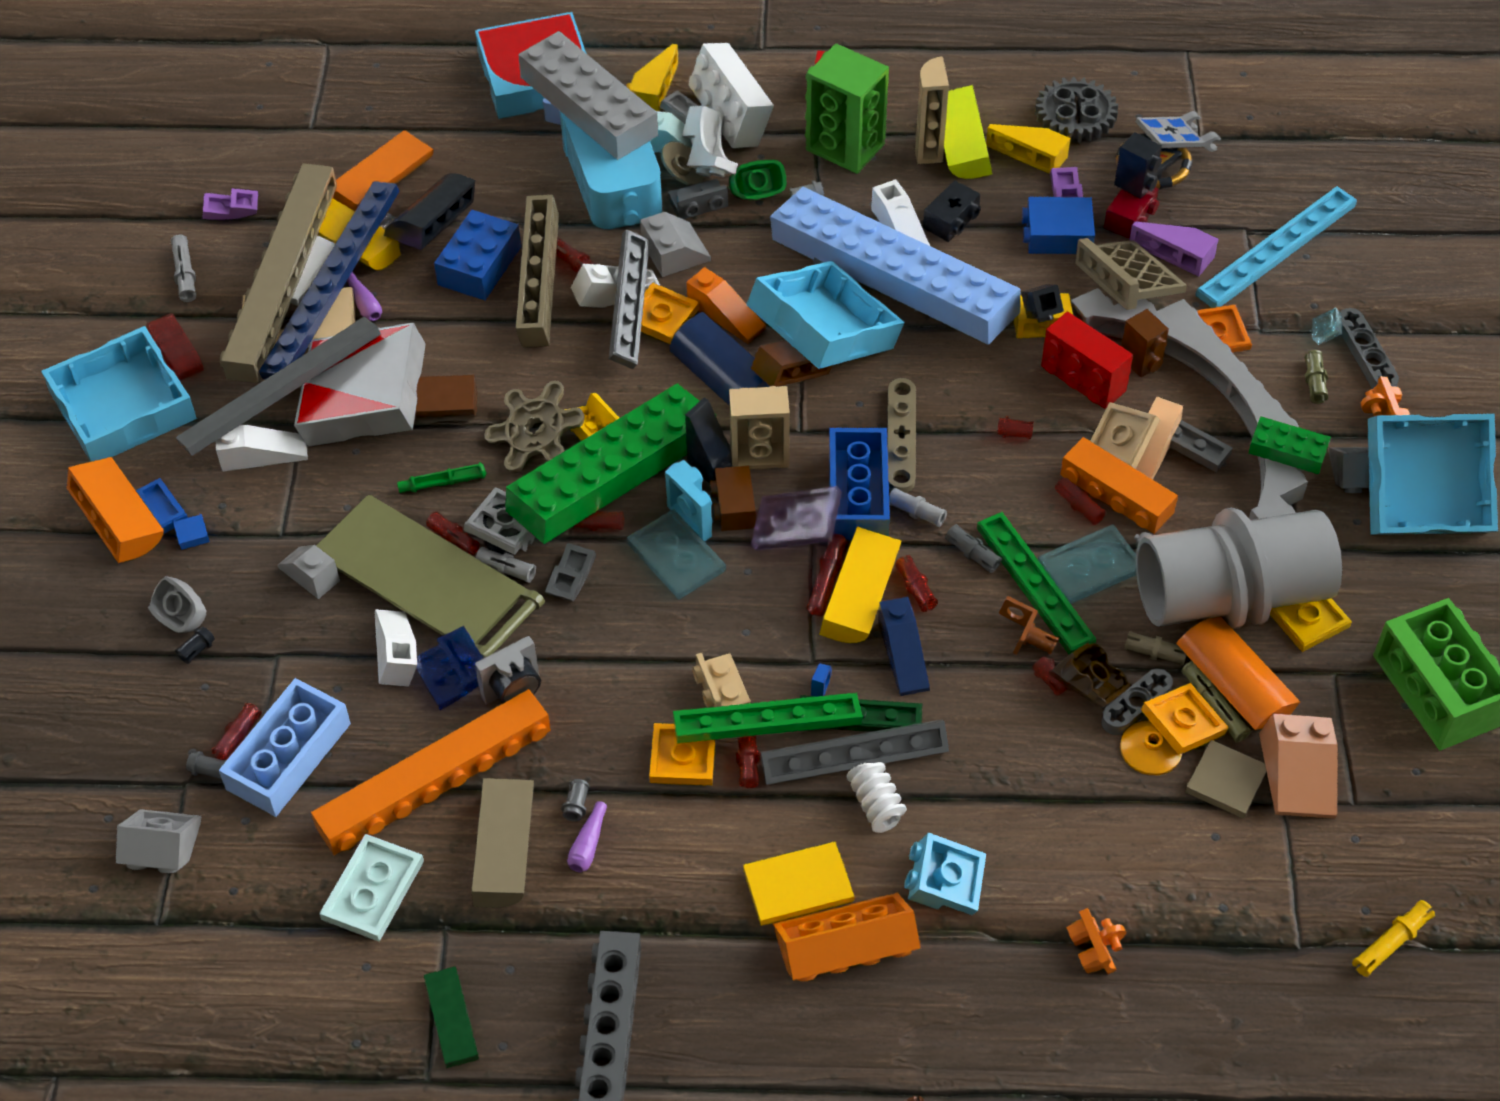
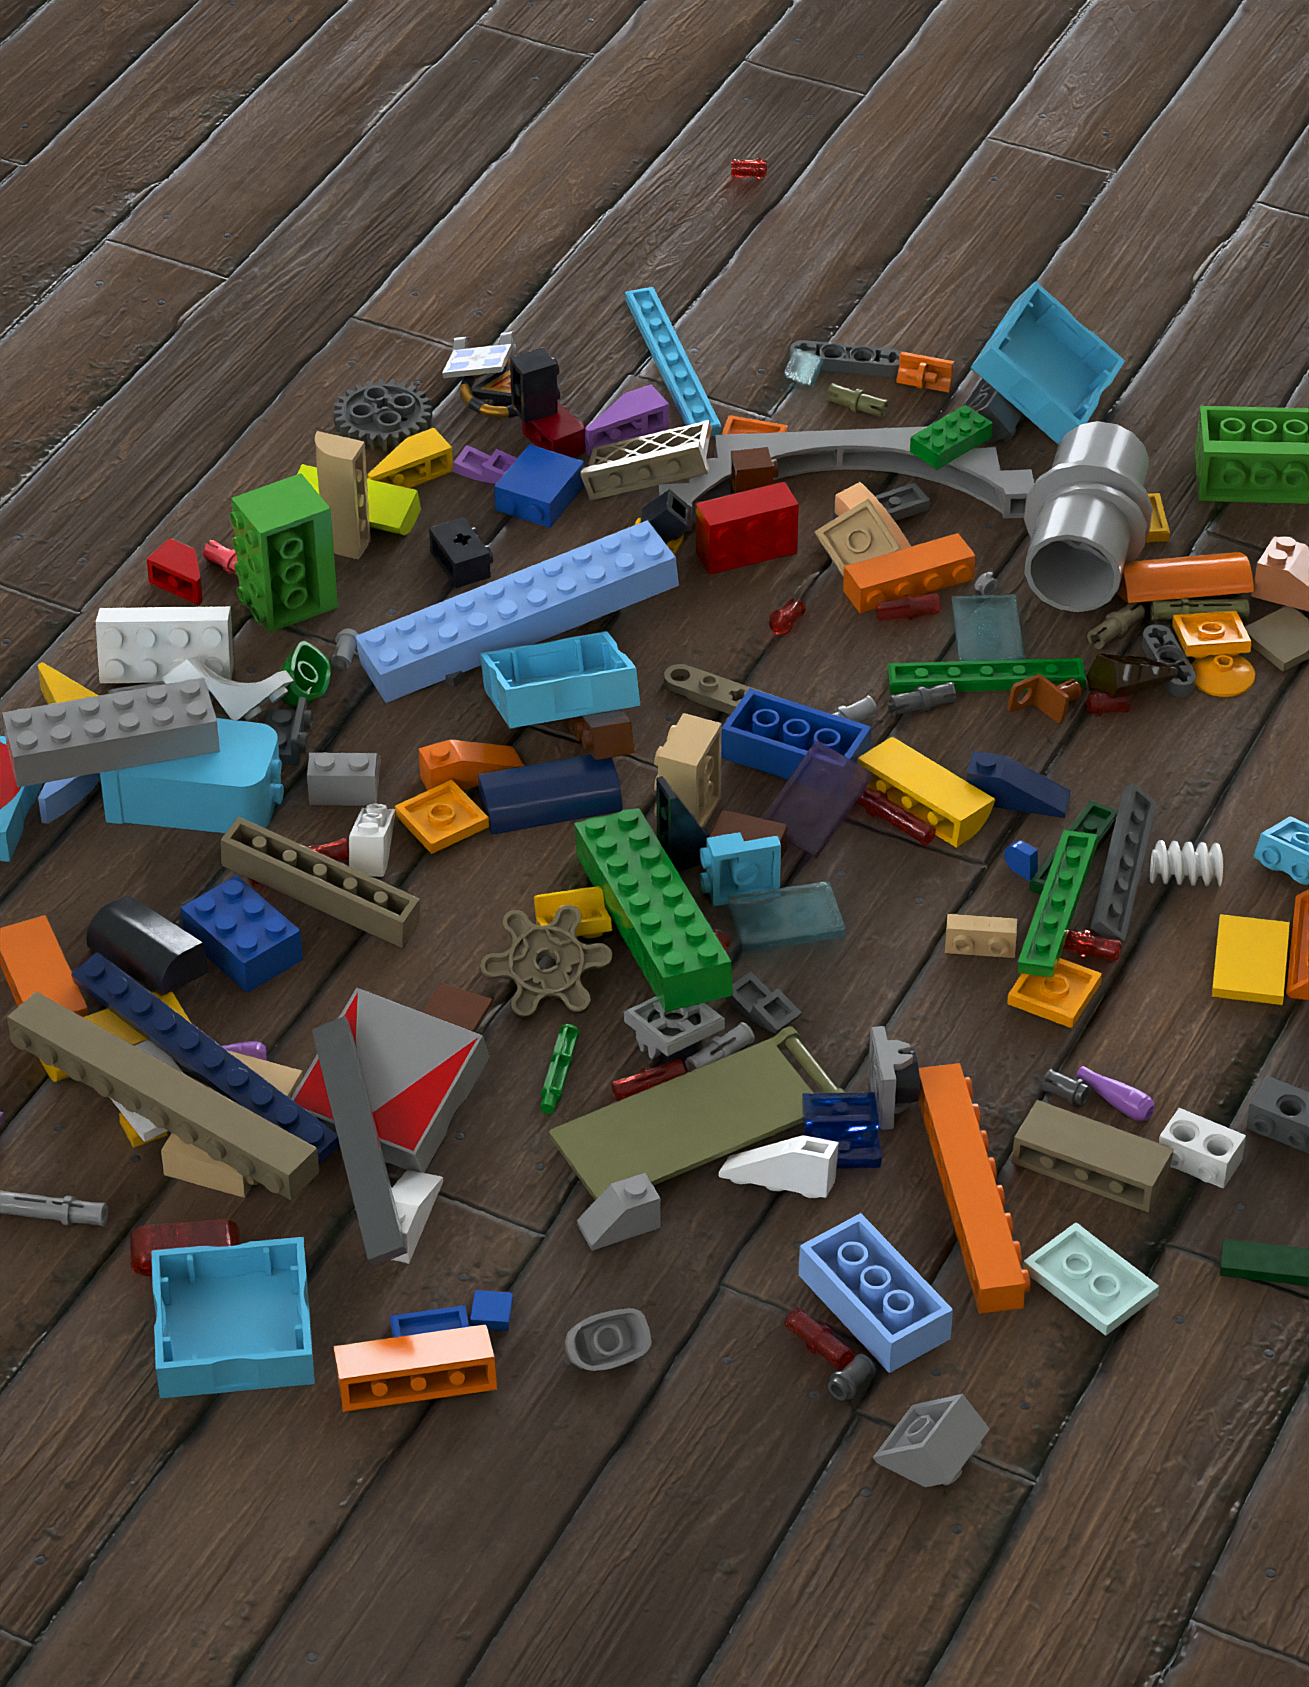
camera: 65 degrees left, 10 degrees down
(195, 644) = (665, 1337): black pin -> none
(551, 916) = (1203, 1147): none -> white brick
(629, 299) = (418, 823): tile -> none
(895, 210) = (433, 583): white slope -> none
(916, 583) = (945, 753): clear red pin -> none

